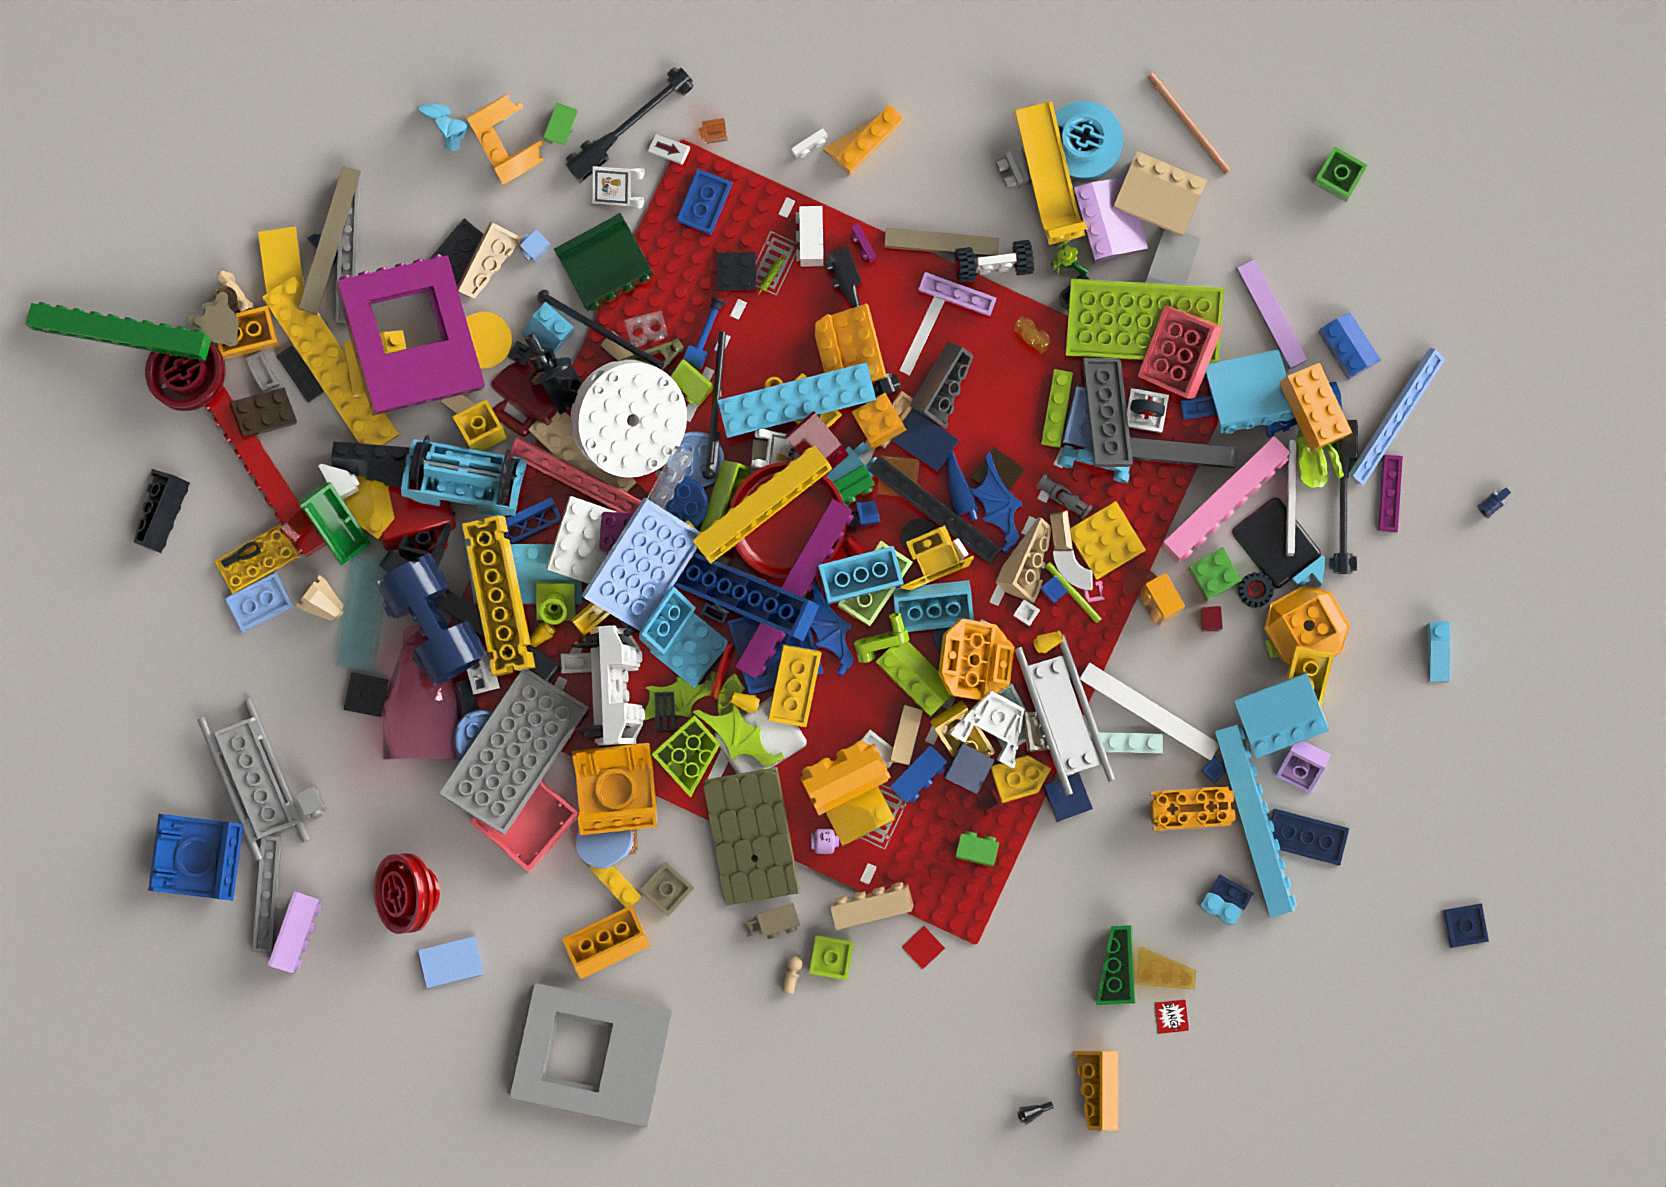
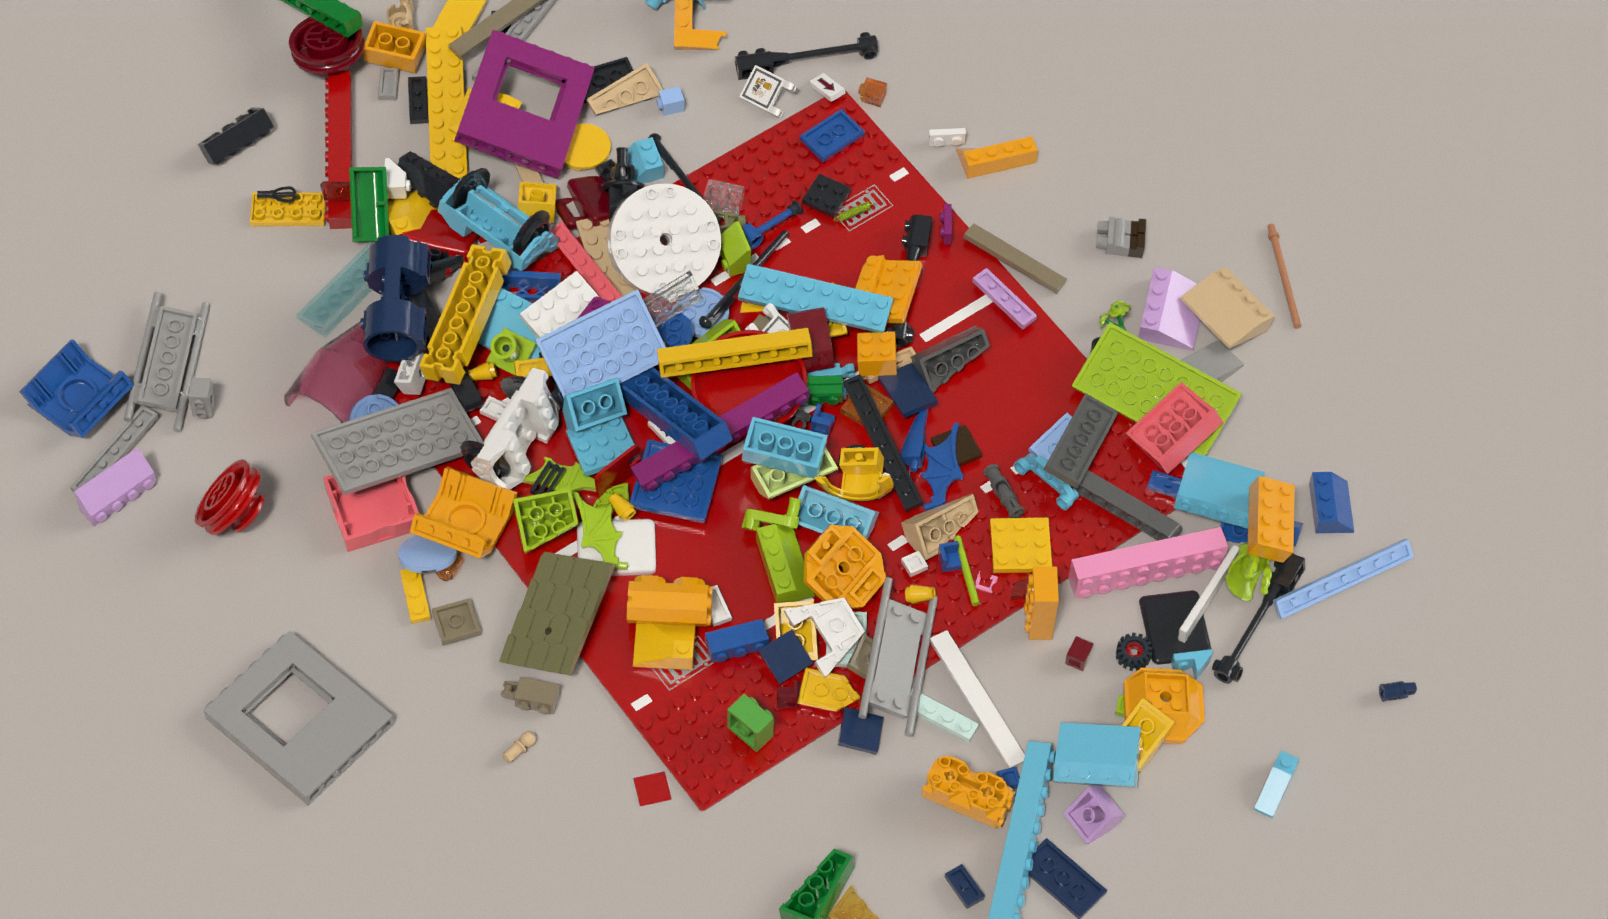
camera: 25 degrees right, 25 degrees down
(217, 321) = (378, 23): dark tan tile -> none
(259, 602) = (267, 240): light blue tile -> none
(263, 412) = (368, 106): dark brown plate -> none
(321, 600) = (317, 257): tan cone -> none
(366, 694) = (302, 347): black tile -> none
(451, 962) = (230, 584): light blue tile -> none
(560, 124) = (748, 28): bright green panel -> none
(604, 262) = (720, 136): dark green panel -> none
(606, 942) = (374, 634): light orange slope -> none
(709, 604) = (638, 420): dark blue piece -> none
(794, 685) = (672, 513): yellow plate -> none
(810, 236) = (904, 197): white wedge -> none
(824, 841) = (618, 649): lavender head -> none
(831, 631) = (731, 490): blue animal -> none
(831, 957) = (564, 751): lime plate -> none
(872, 906) = (626, 720): tan brick -> none
(906, 735) = (746, 604): tan tile -> none
(967, 266) = (1051, 288): black plate -> none
(1031, 335) = (1051, 354): clear yellow brick -> none
(1049, 172) = (1139, 244): yellow panel -> none
(1057, 408) = (1039, 424): lime plate -> none
(1061, 531) = (984, 516): tan tile -> none
(1072, 571) = (975, 551): white tile -> none
(1101, 150) = (1184, 242): medium azure wheel -> none
(1146, 410) = (1117, 461): white plate -> none
(1214, 574) = (1103, 618): bright green brick -> none
(1216, 906) = (946, 894): medium azure brick -> none
(1272, 314) = (1274, 439): lavender tile -> none
(1340, 174) = (1397, 369): bright green brick -> none
(1390, 493) = (1303, 638): magenta tile -> none

